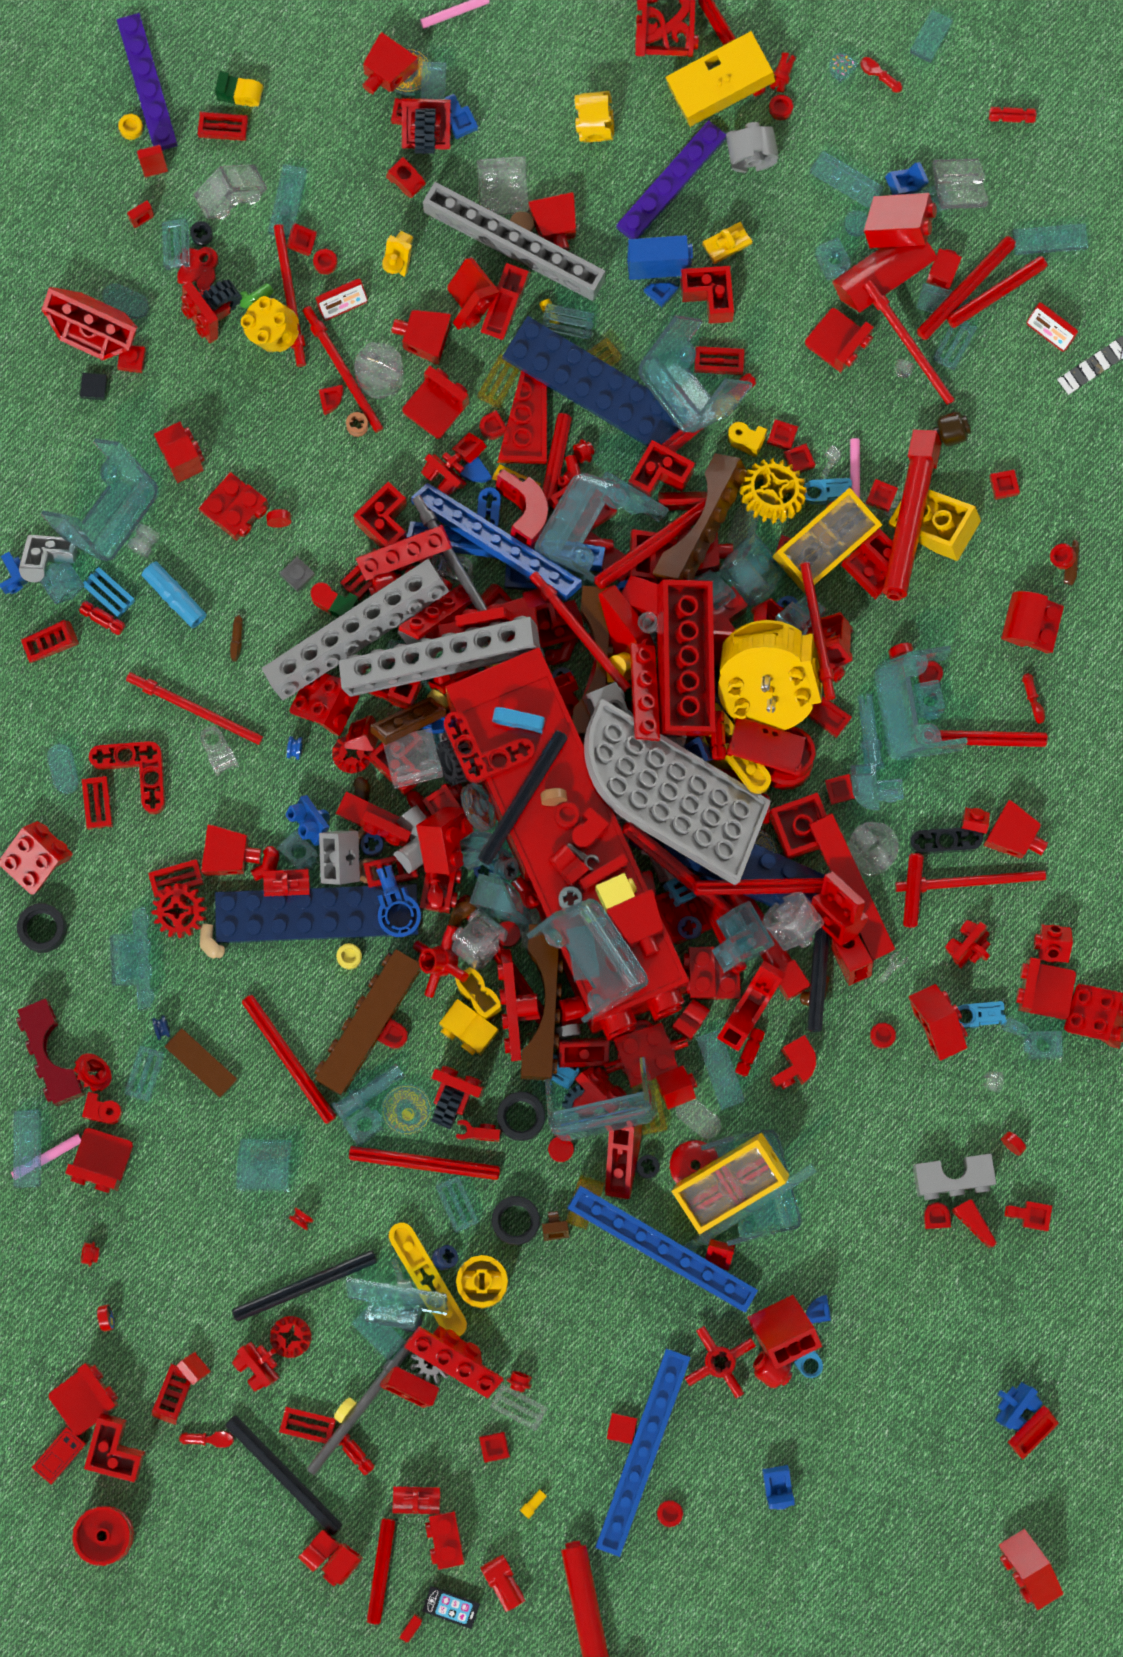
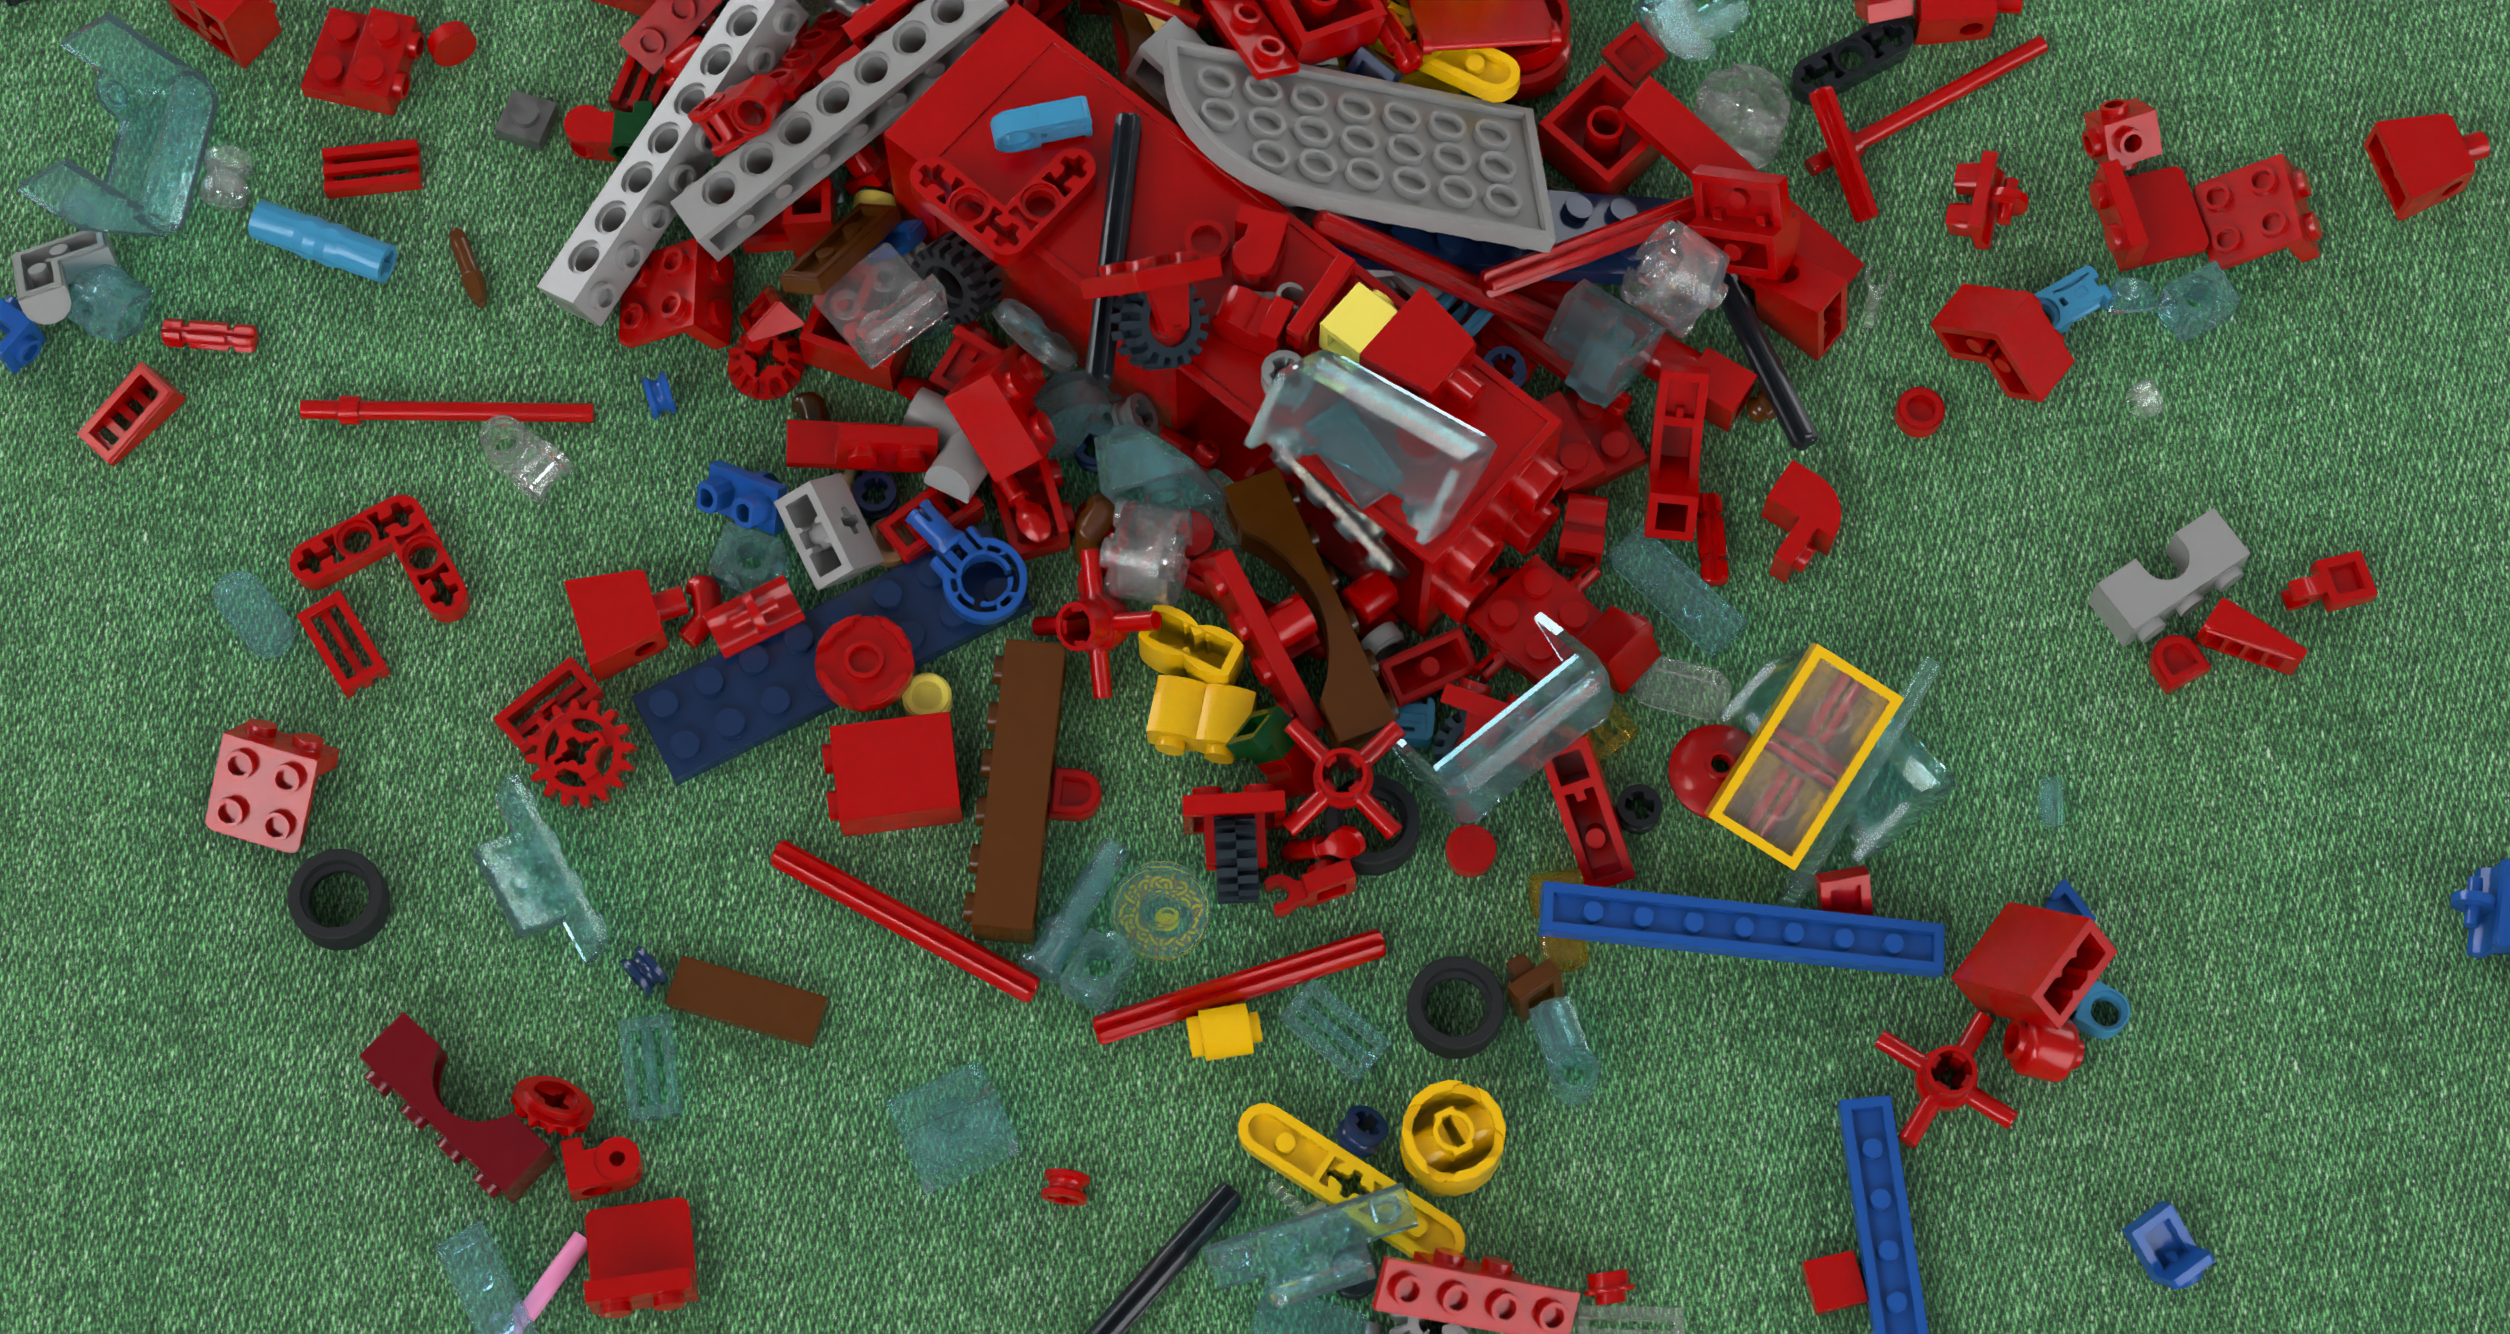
camera: 25 degrees left, 10 degrees down
(93, 578) = (205, 273): dark azure tile -> none
(194, 558) = (372, 160): none -> red tile
(209, 945) = (663, 791): tan arm -> none
(315, 987) = (893, 774): none -> red brick
(326, 928) = (864, 663): none -> red tile
(389, 634) = (732, 118): none -> red piece
(405, 1182) = (1223, 1032): none -> yellow brick
(494, 1062) = (1274, 752): none -> leg
(499, 1120) = (1343, 843): none -> red piece
(525, 839) = (1156, 306): none -> plate
(525, 1090) = (1344, 759): none -> red bar
(553, 797) = (1167, 221): medium nougat tile -> none
(555, 1261) = (1564, 1047): none -> clear light blue piece
(839, 1256) = (2051, 802): none -> clear light blue tile
(1013, 1143) = (2237, 481): red tile -> none

